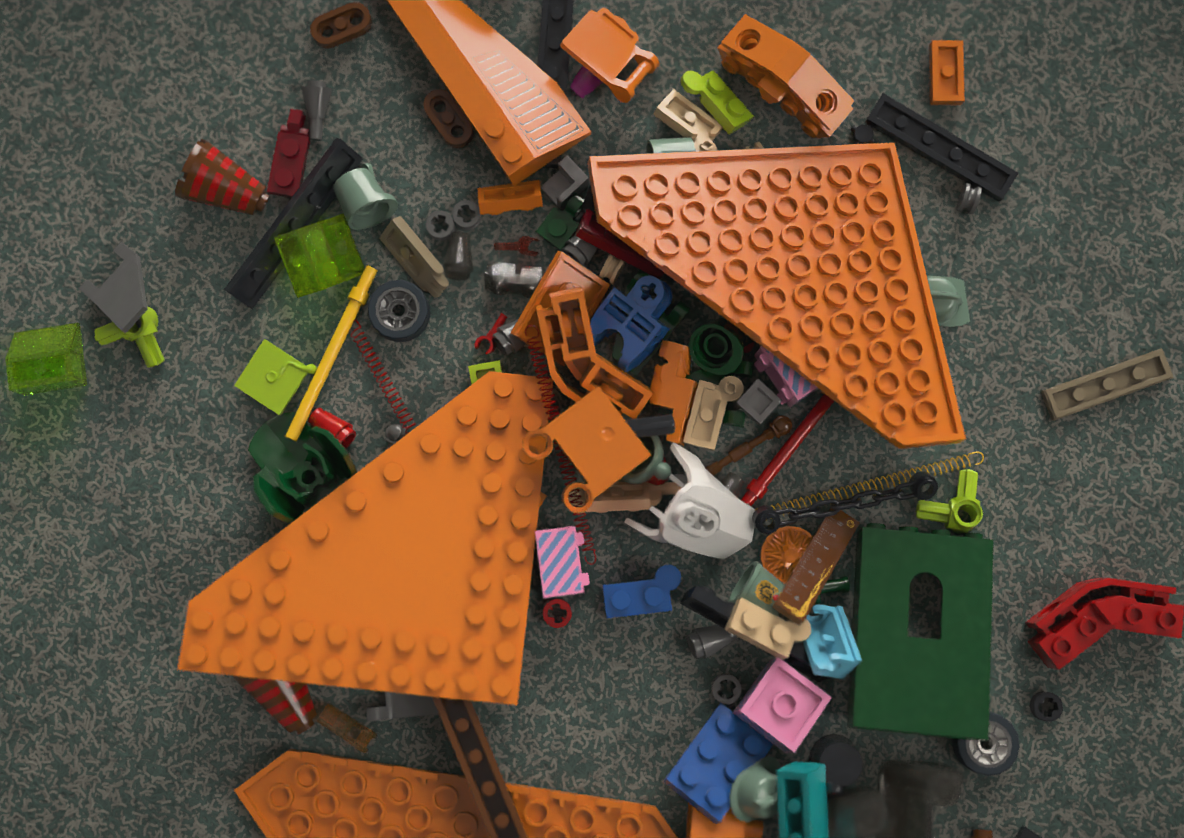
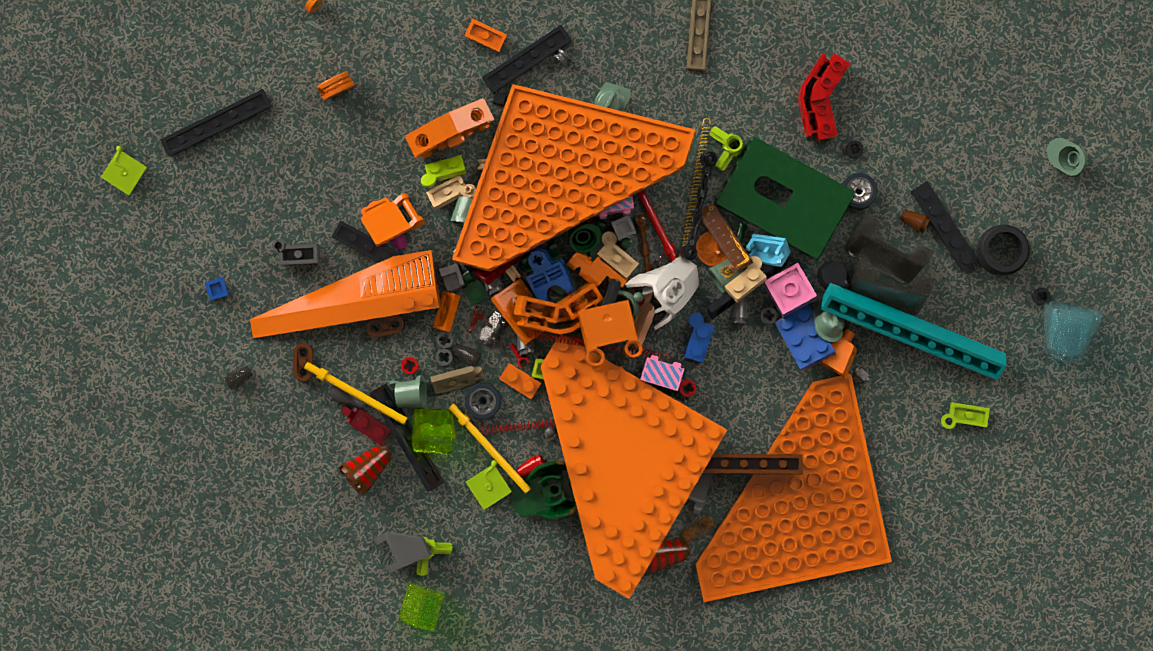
camera: 65 degrees left, 5 degrees up
(333, 59) = (323, 374): none -> yellow bar
(407, 171) = (404, 362): none -> red bush
(454, 353) = (520, 381): none -> orange plate

